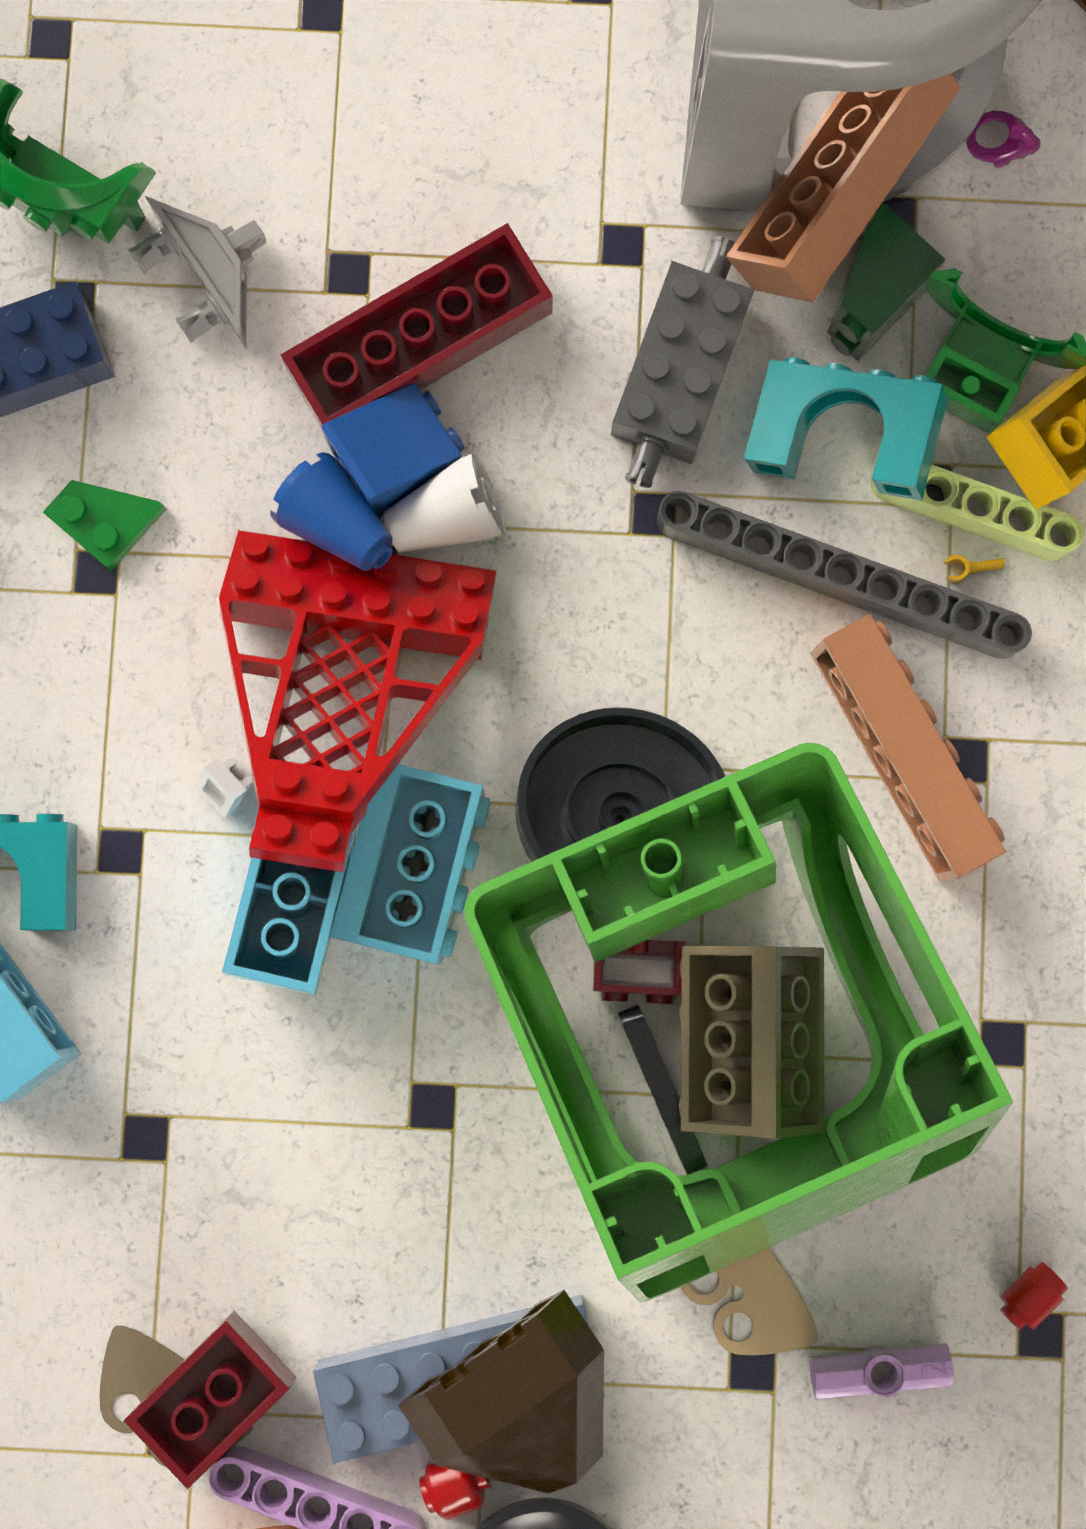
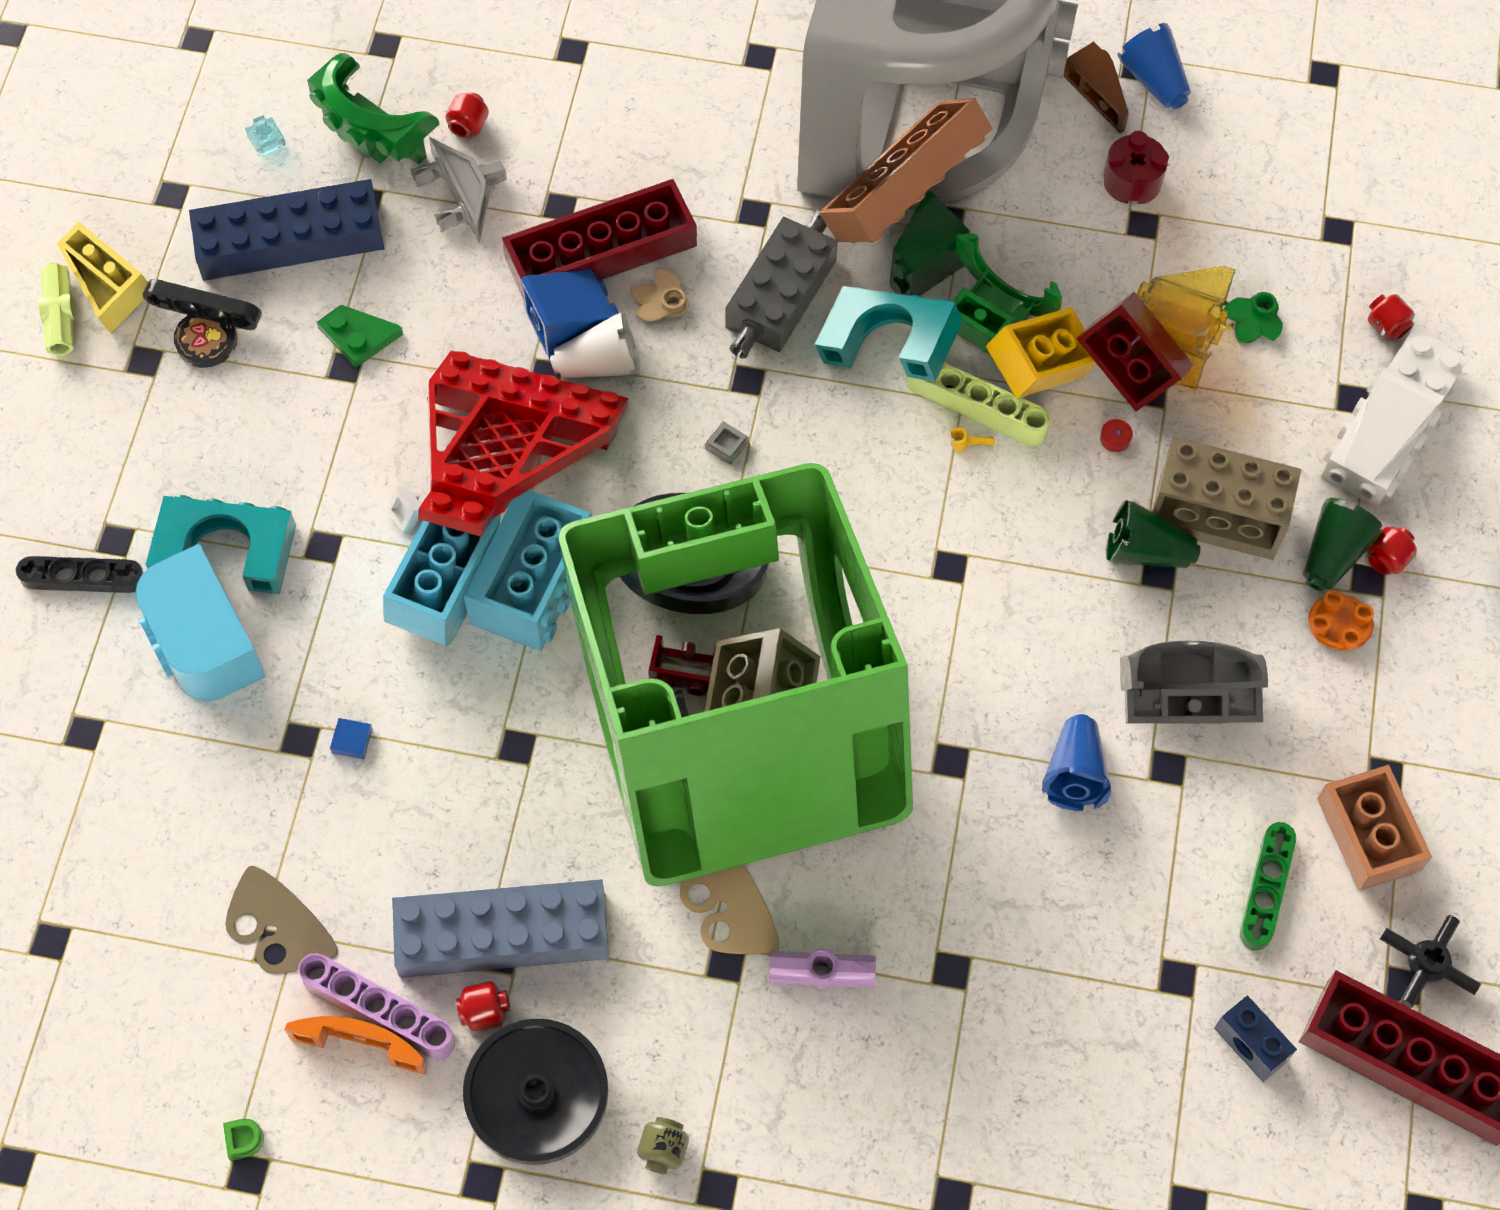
camera: 10 degrees right, 20 degrees down
(191, 146) = (466, 114): none -> red head
(210, 1399) = (312, 911): dark red brick -> none
(213, 1131) = (351, 738): none -> blue tile
(331, 513) = (516, 338): blue cone -> none
(508, 401) = (656, 297): none -> tan plate
(519, 1402) = (542, 932): dark brown panel -> none
(640, 618) = (726, 442): none -> light grey tile
(863, 571) = (883, 442): dark grey beam -> none
(907, 749) = (903, 542): nougat brick -> none
(1017, 146) = (1038, 183): magenta piece -> none
(1033, 1296) = (946, 933): red brick -> none

